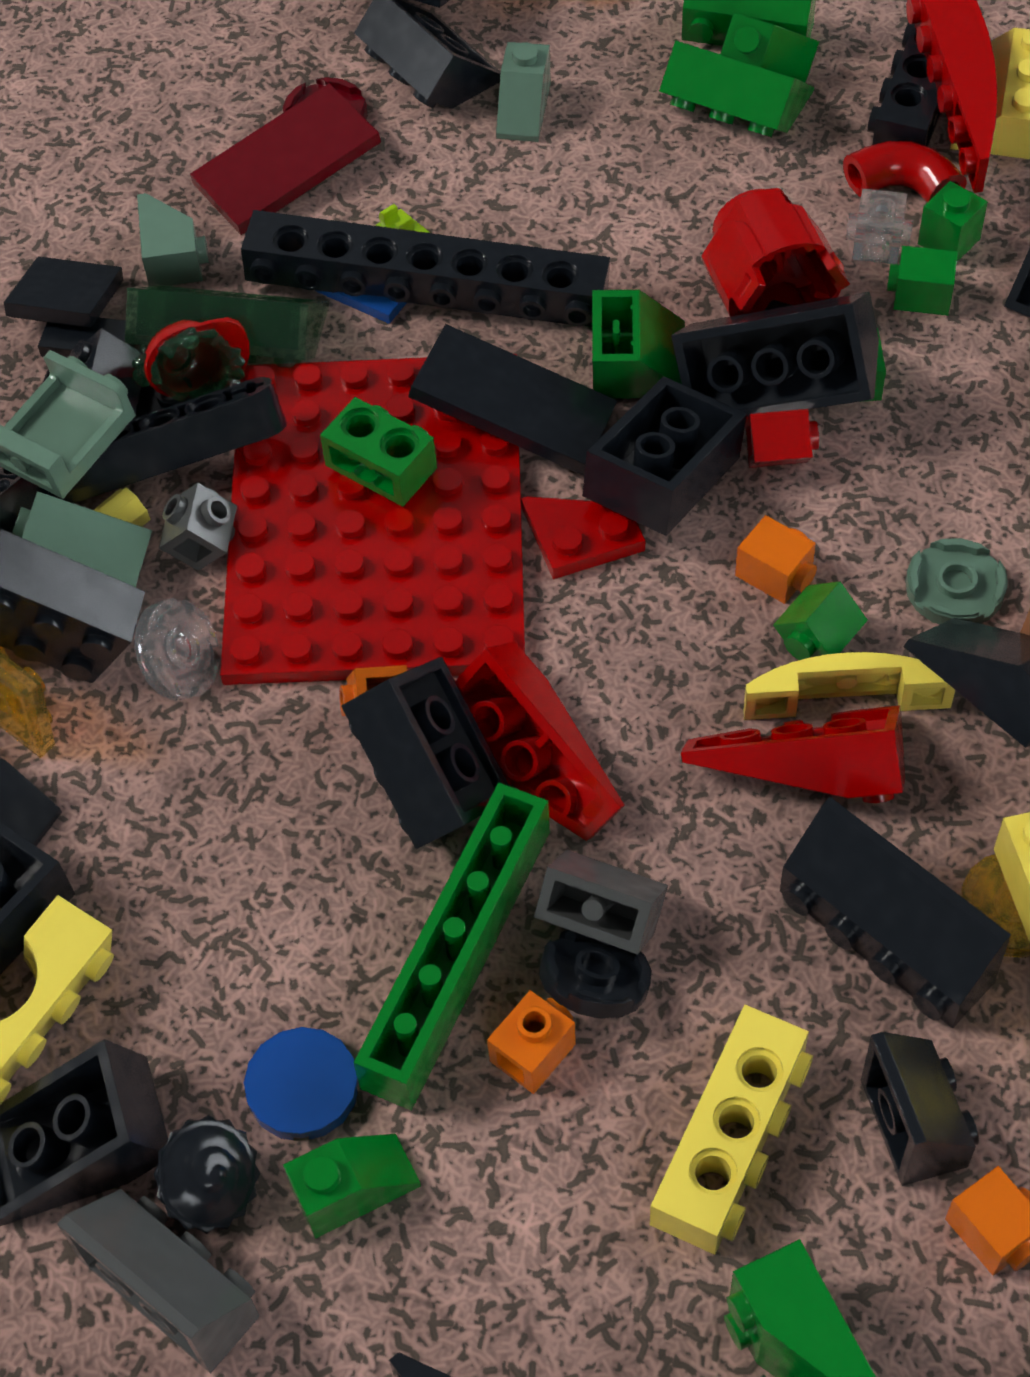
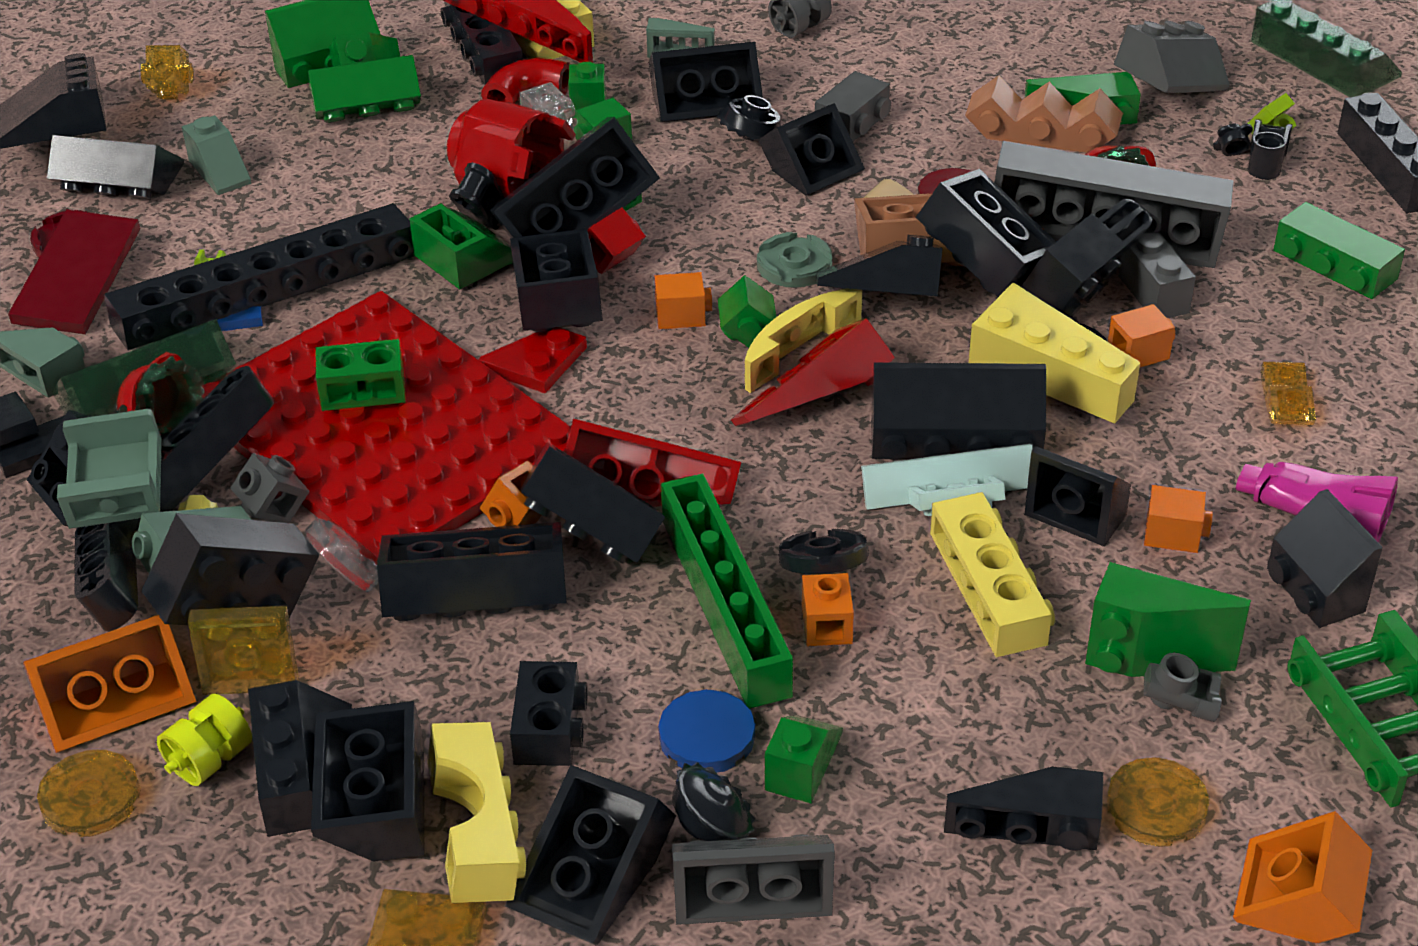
camera: 45 degrees left, 15 degrees down
(173, 945) = (546, 713): none -> black brick
(268, 744) = (471, 571): none -> black slope
(512, 398) = (414, 307): black tile -> none
(600, 901) = (787, 513): dark grey brick -> none
(694, 295) = (477, 195): none -> black piece
(810, 985) = (946, 477): none -> light aqua bracket

